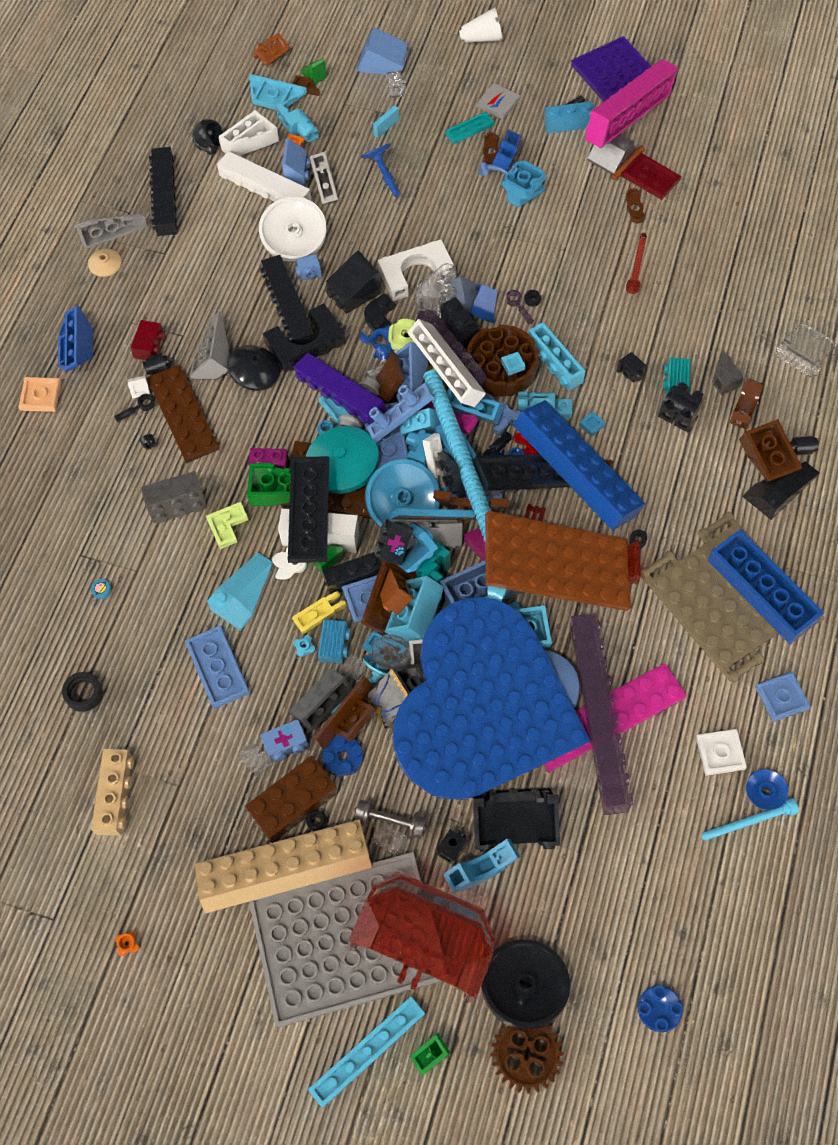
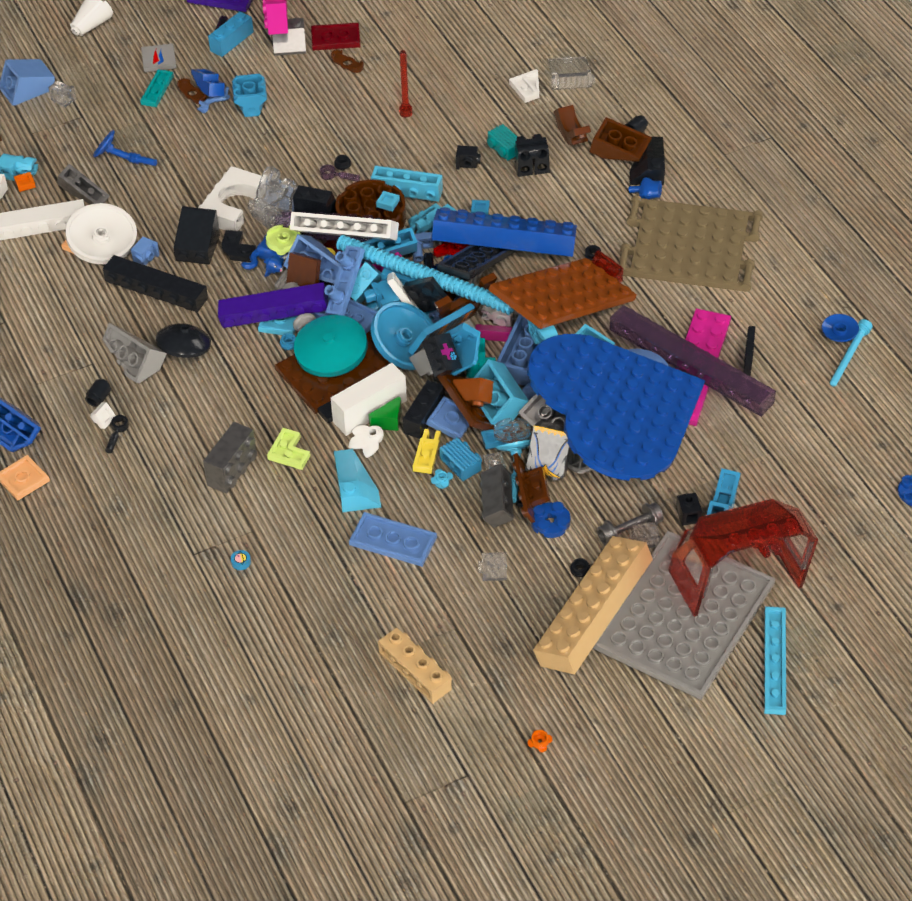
camera: 45 degrees left, 15 degrees down
(78, 678) = (313, 640): black tyre -> none
(147, 340) = (70, 382): dark red brick -> none
(147, 441) = (156, 444): black hinge -> none
(183, 413) = (161, 409): reddish brown plate -> none
(268, 485) = (300, 397): green wedge -> none
(278, 457) = (273, 389): magenta brick -> none
(284, 741) = (501, 537): medium blue brick -> none
(289, 354) = (202, 313): black arch -> none
(291, 799) = (549, 567): reddish brown brick -> none
(295, 163) = (45, 190): medium blue slope -> none
(308, 510) = (354, 380): black plate -> none
(386, 121) = (85, 122): medium azure tile -> none
(430, 1054) = (816, 623): green slope -> none
(484, 303) = (308, 180): piece -> none
(517, 815) = (702, 462): black windscreen -> none
(522, 1076) = (872, 577): reddish brown gear -> none
(526, 984) = (840, 538): black dish -> none
(618, 172) = (308, 38): dark orange bar -> none
(656, 746) = (749, 350): none -> black tile
(721, 752) = (788, 330): white plate -> none
(726, 375) = (535, 119): flat silver slope -> none
(749, 515) = (648, 189): none -> blue piece
(755, 336) = (526, 85): none -> white wing
(765, 586) = (710, 215): blue brick -> none
(782, 696) = (789, 273): medium blue plate -> none

